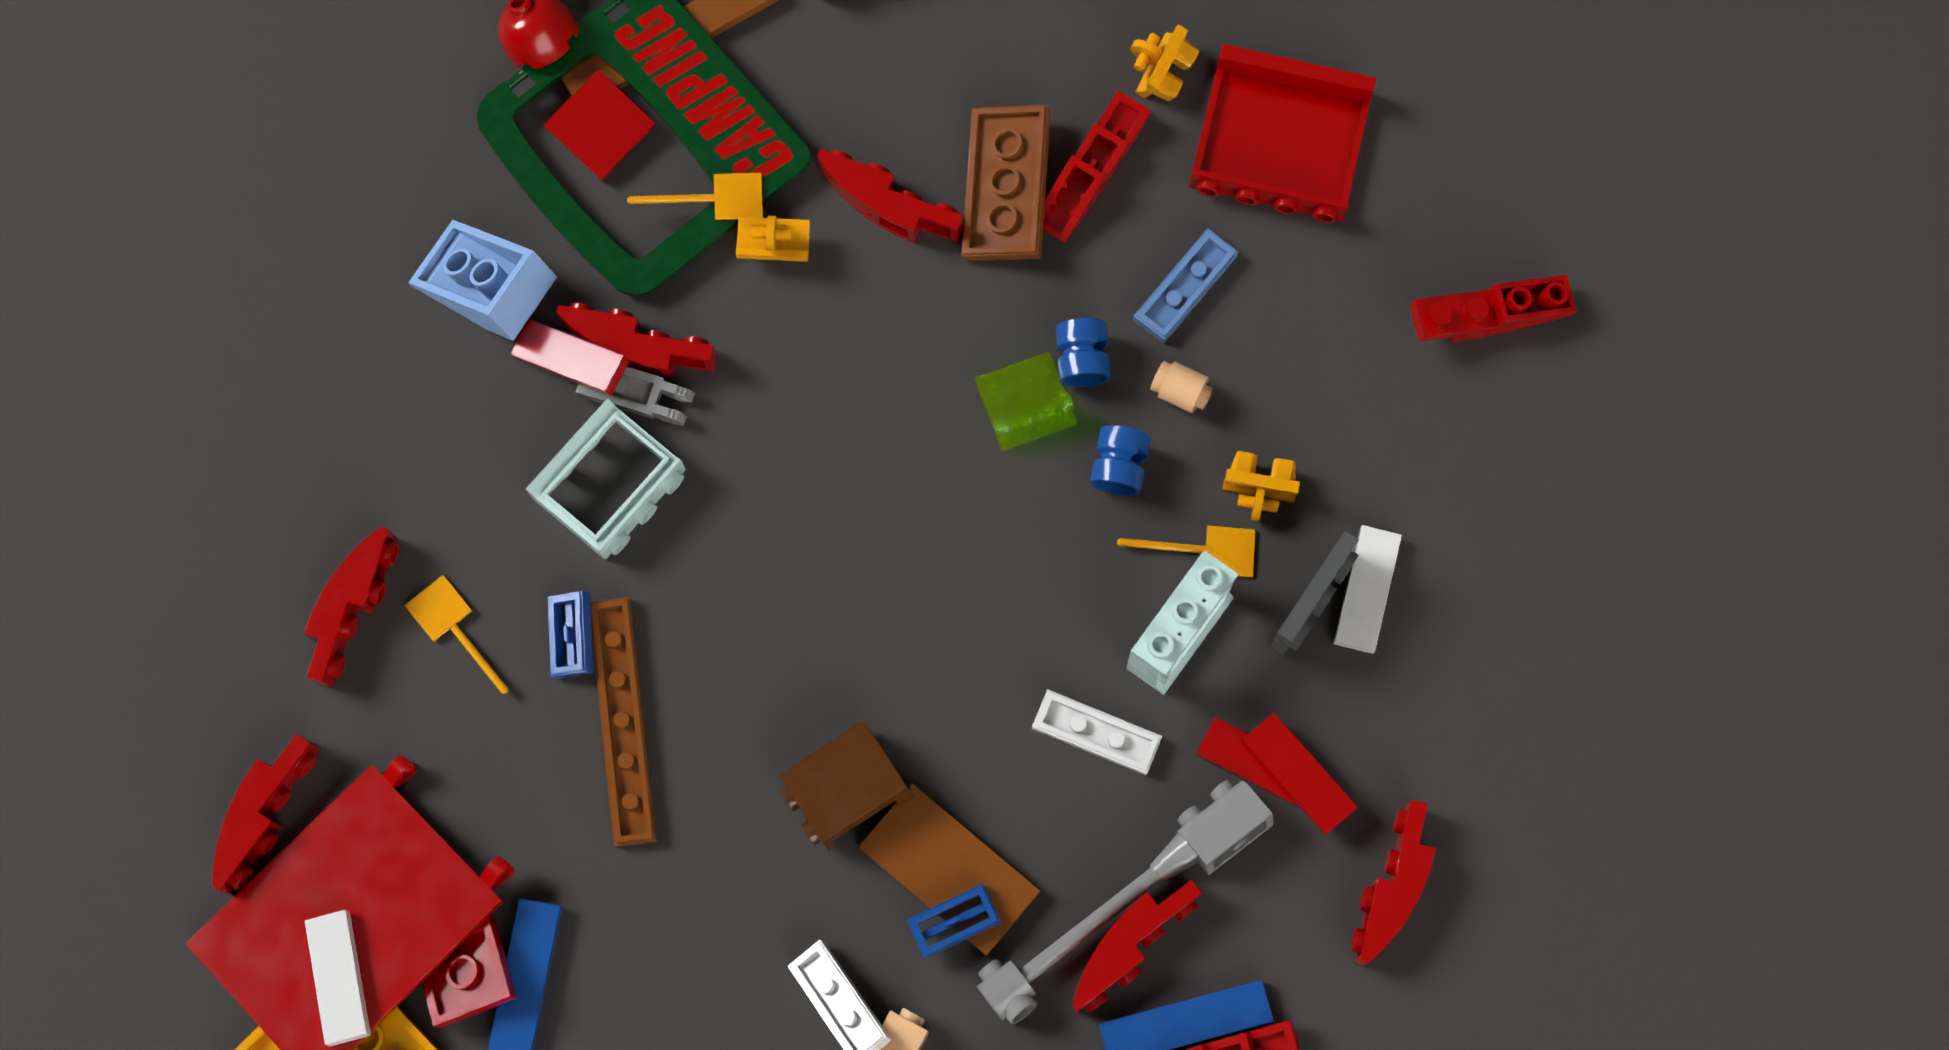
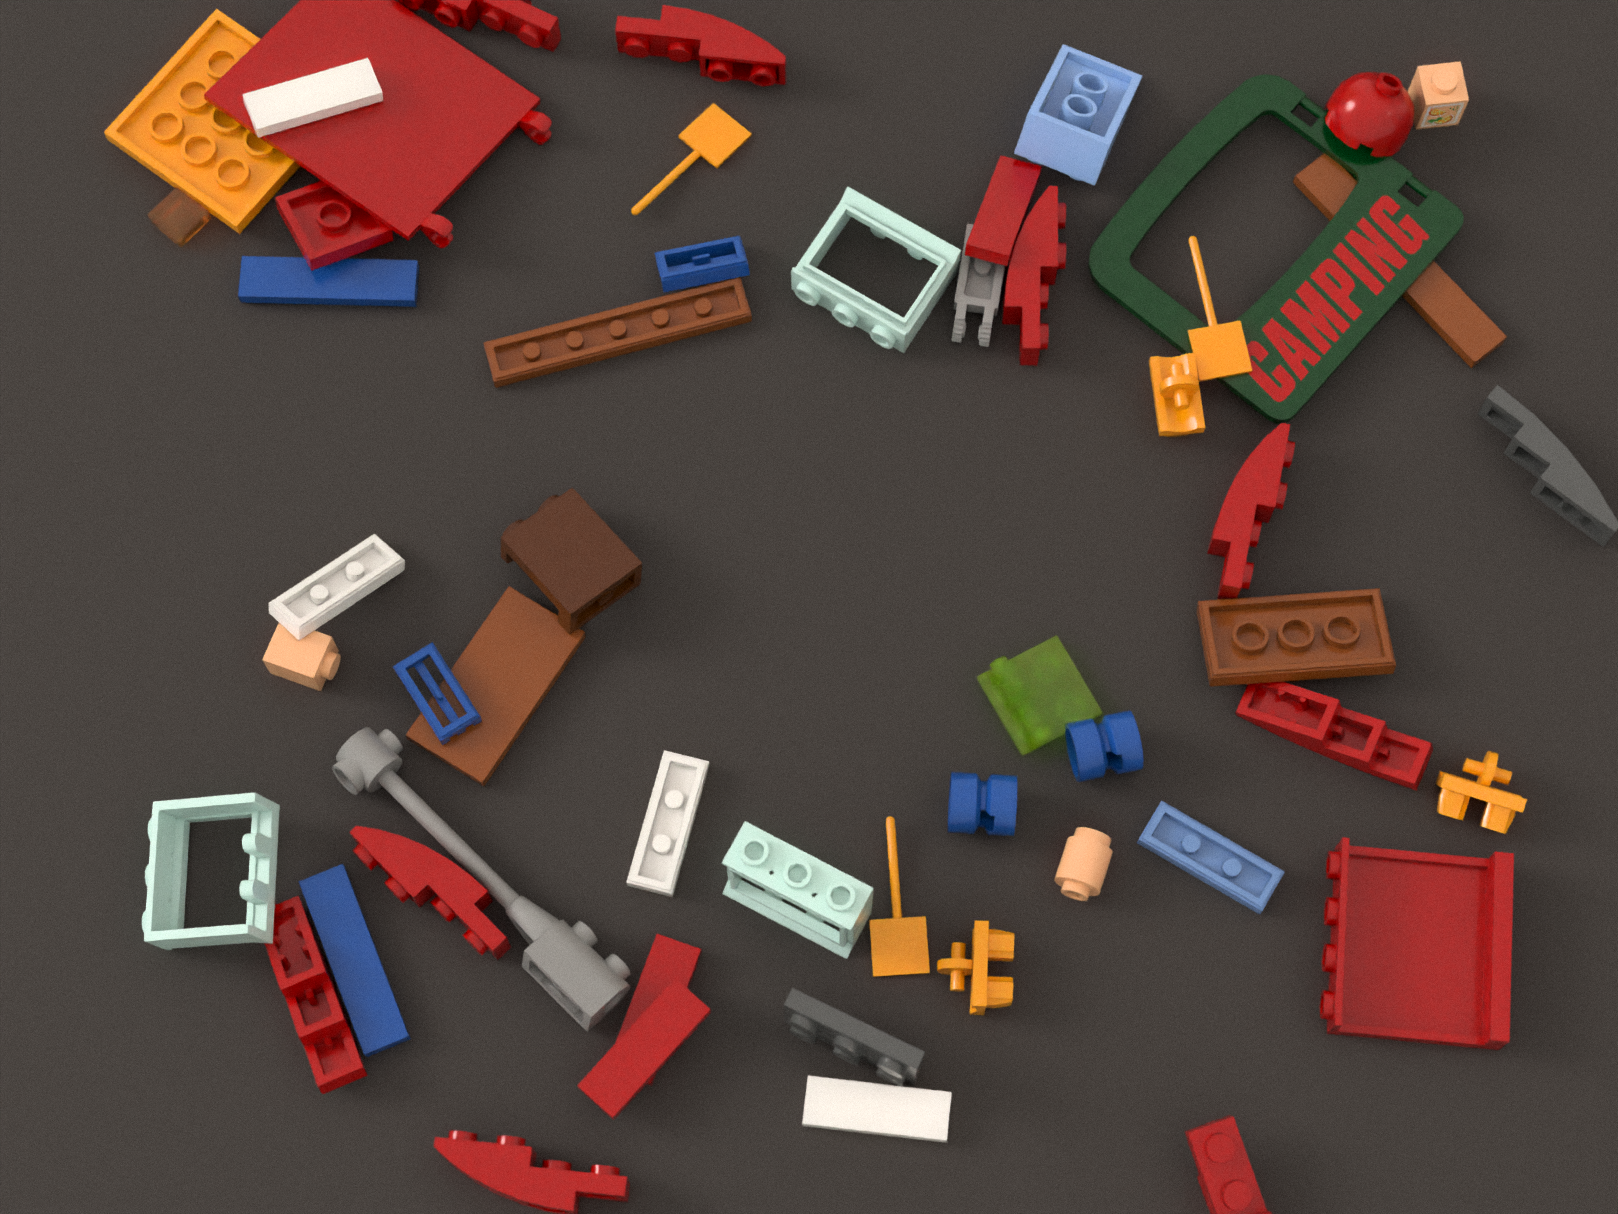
camera: 80 degrees right, 5 degrees down
(599, 125) = (1276, 199): red tile -> none

